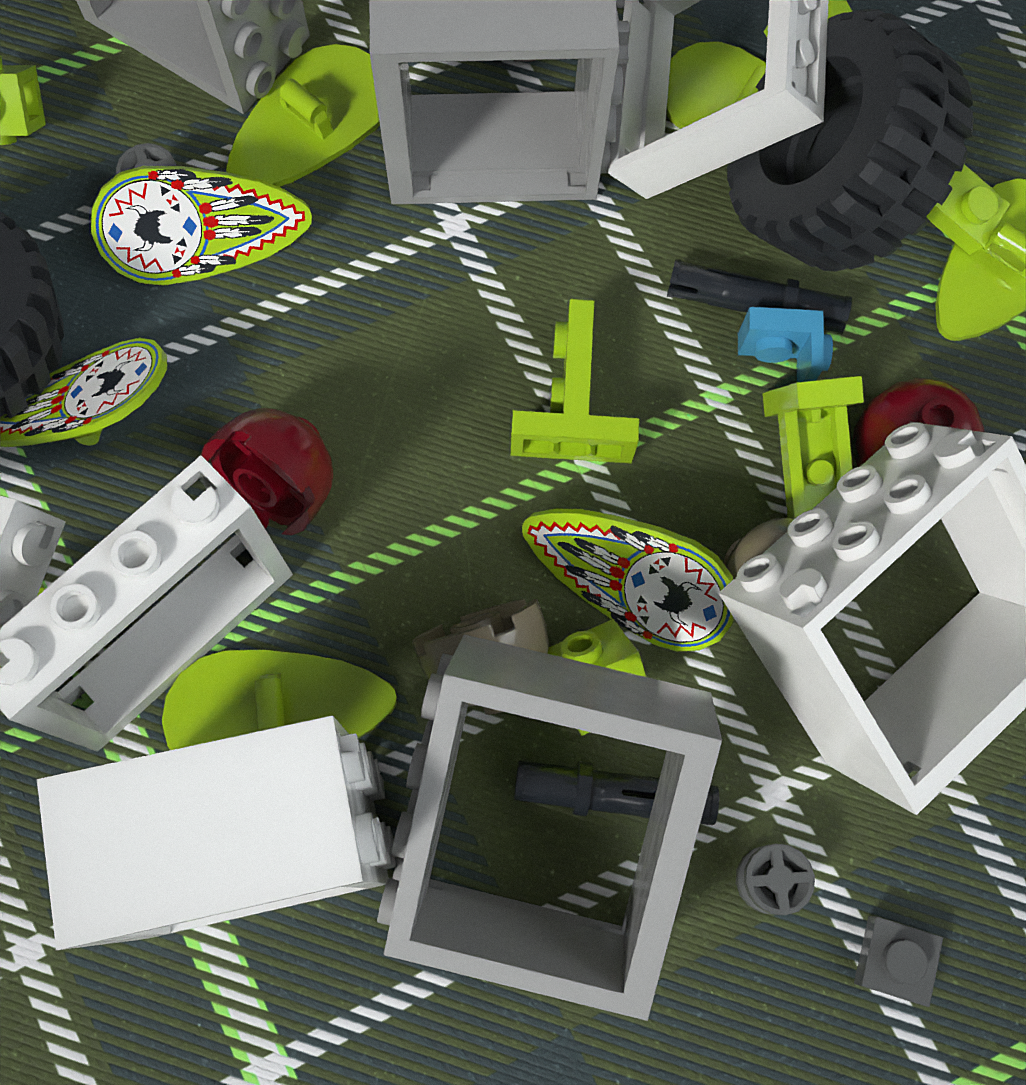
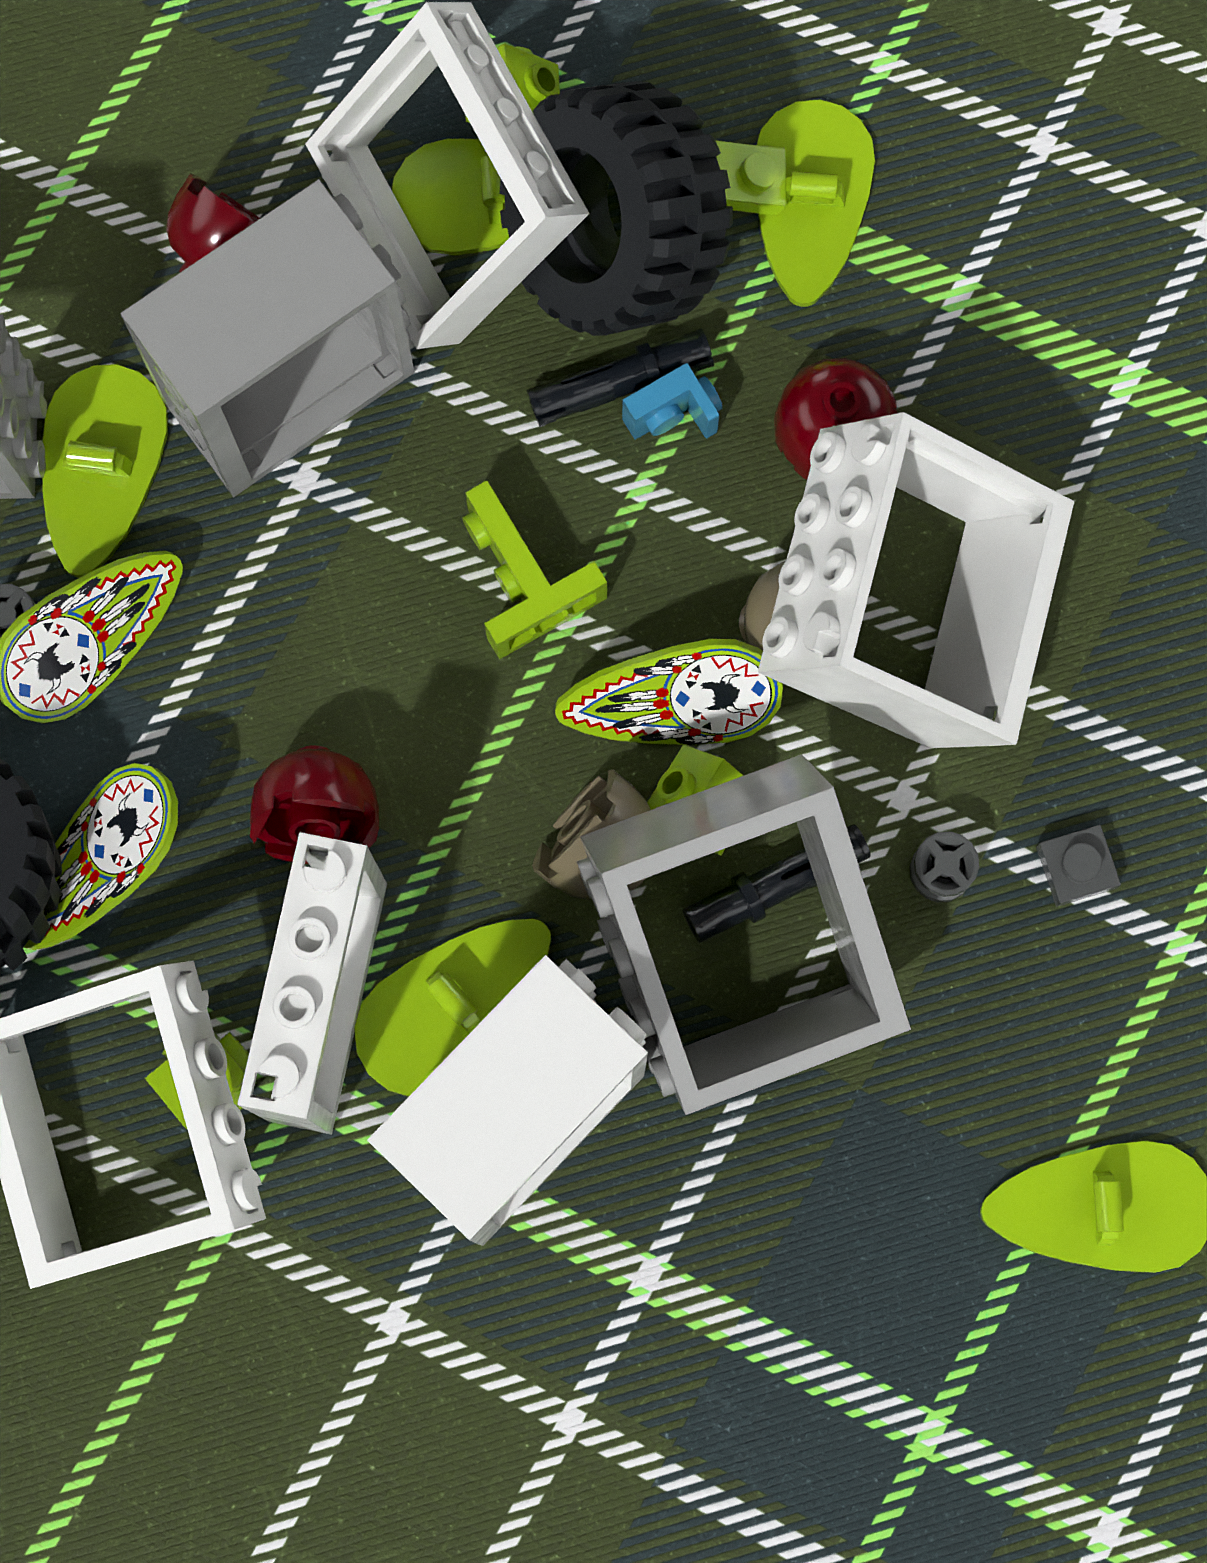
camera: 30 degrees left, 5 degrees up
(813, 437) = (749, 483): lime bracket -> none

